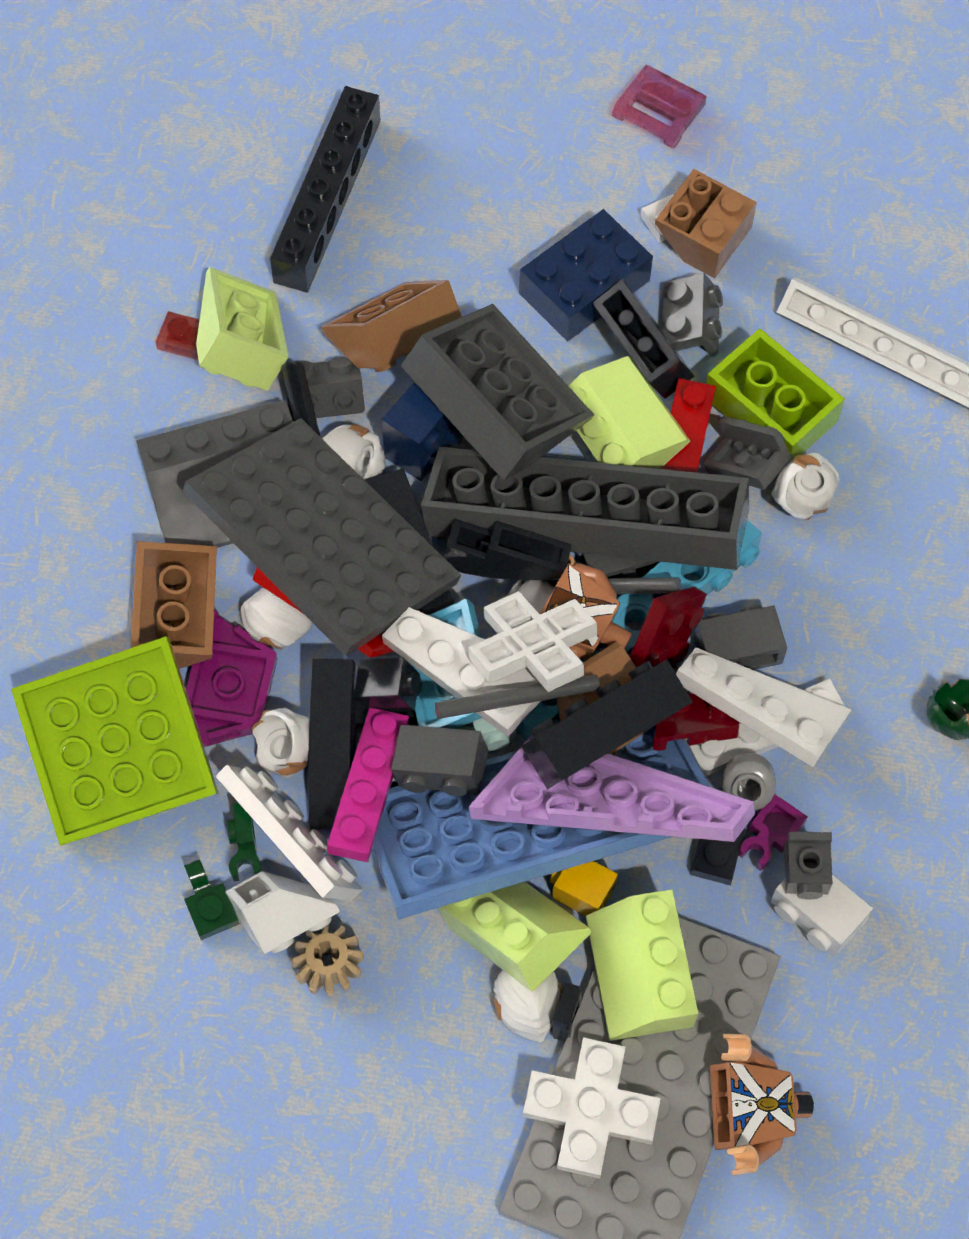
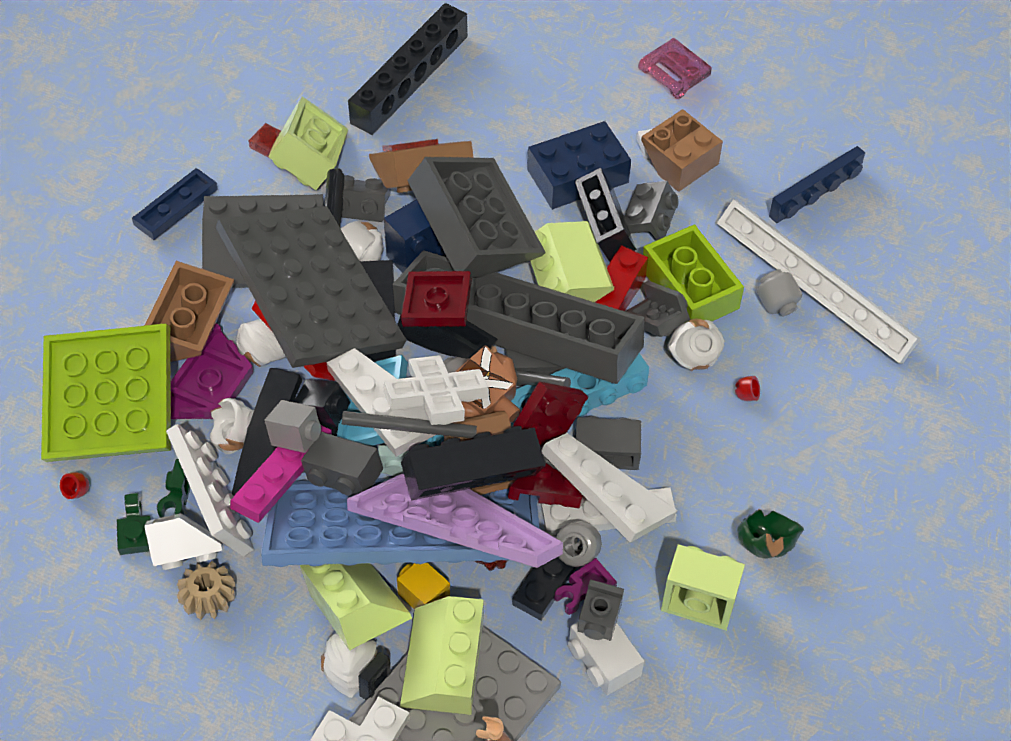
camera: 15 degrees right, 10 degrees down
(94, 454) = (174, 203): none -> dark blue plate
(106, 866) = (73, 481): none -> red hinge
(367, 300) = (407, 145): none -> clear red piece
(370, 729) = (293, 426): none -> light grey brick
(488, 516) = (436, 298): none -> dark red plate
(877, 238) = (815, 185): none -> dark blue plate
(882, 390) = (779, 292): none -> light grey head
(882, 526) = (748, 388): none -> red hinge
(911, 798) = (702, 586): none -> yellowish green brick

